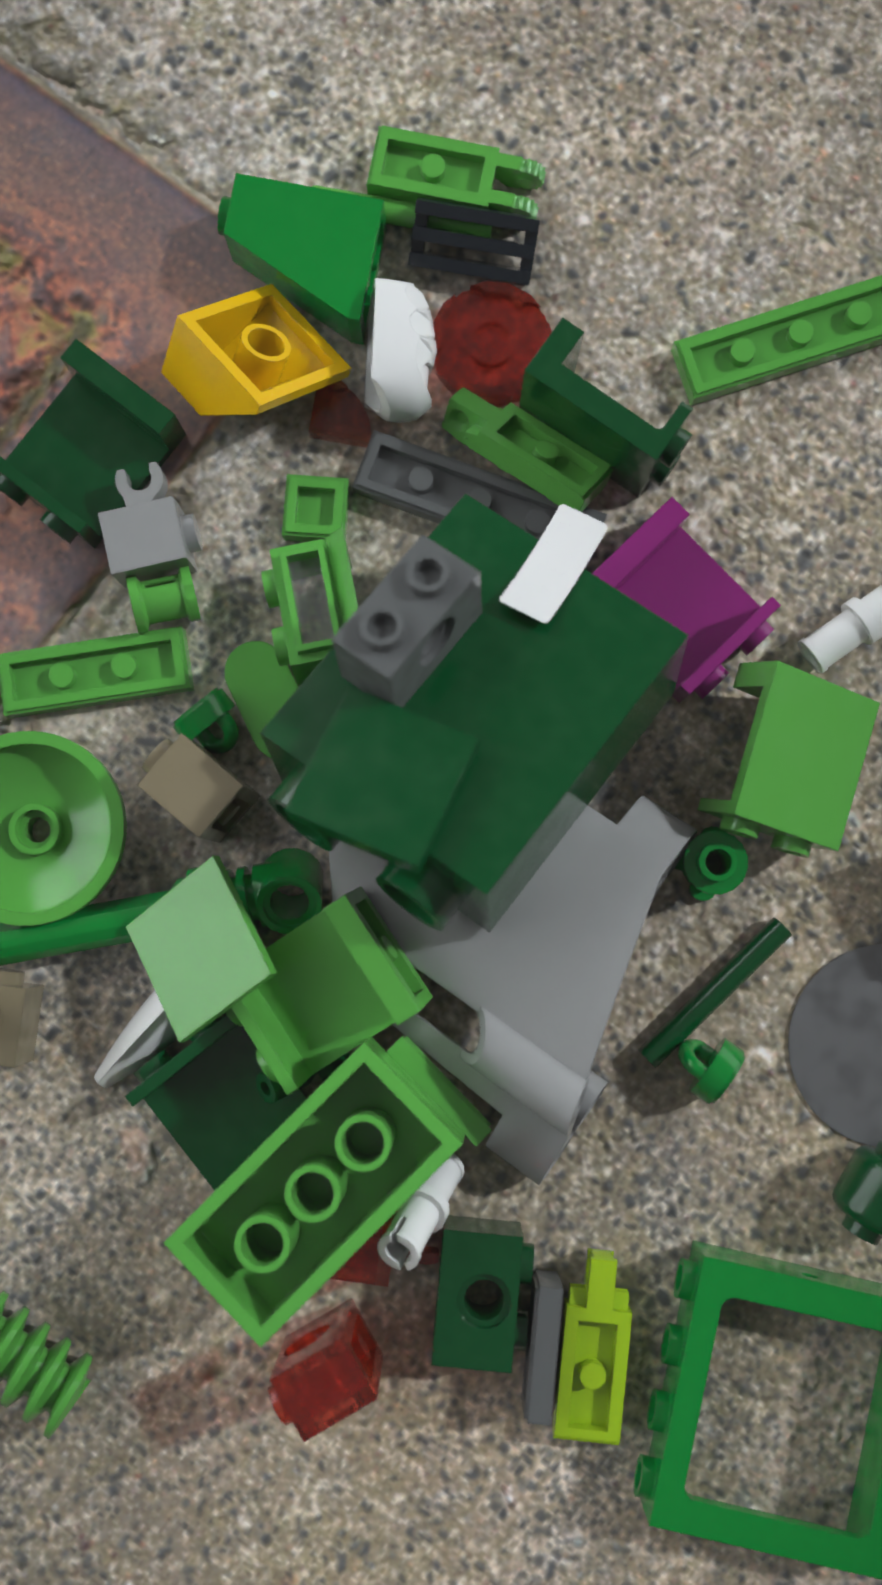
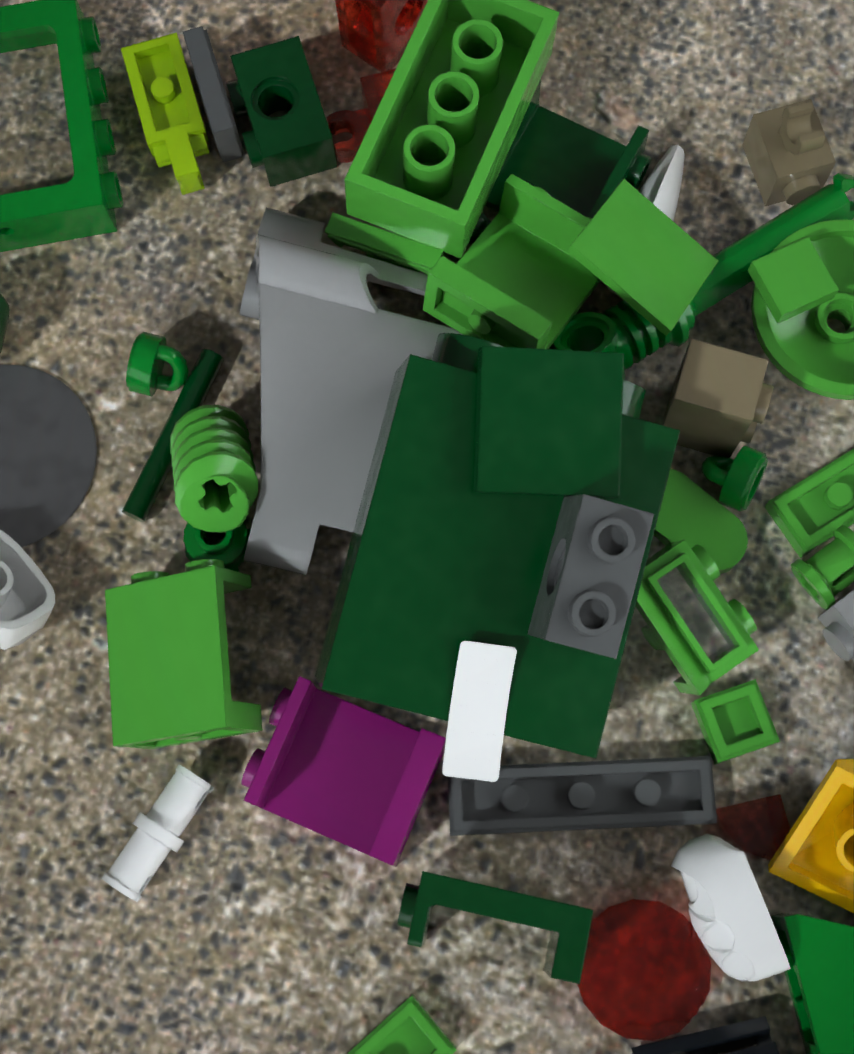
camera: 160 degrees right, 10 degrees down
(66, 871) = (792, 280): none -> bright green tile
(420, 1217) = (356, 118): white pin -> none
(527, 449) = (554, 862): bright green hinge -> none
(697, 921) = (213, 468): none -> bright green piece

